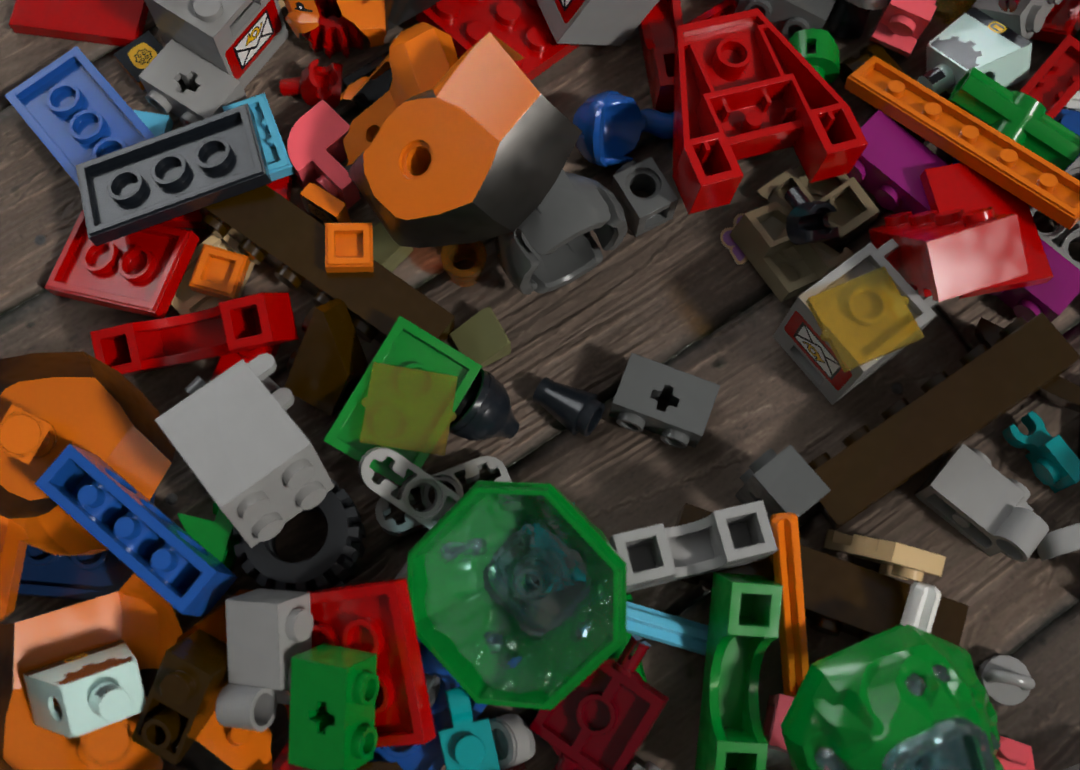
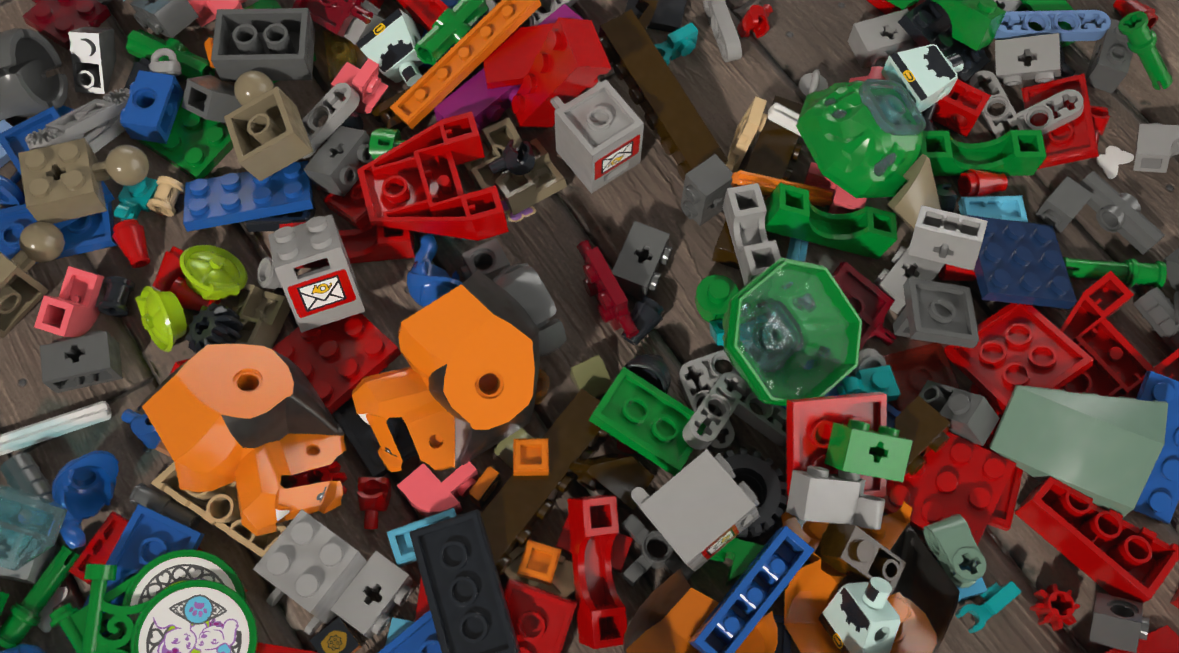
camera: 85 degrees left, 5 degrees down
(408, 409) = (656, 414): clear yellow piece -> none
(597, 349) = (603, 285): none -> dark red plate
(612, 506) = (714, 296): none -> green piece
(864, 319) = (609, 118): clear yellow piece -> none
(983, 504) = (712, 80): light grey hinge -> none

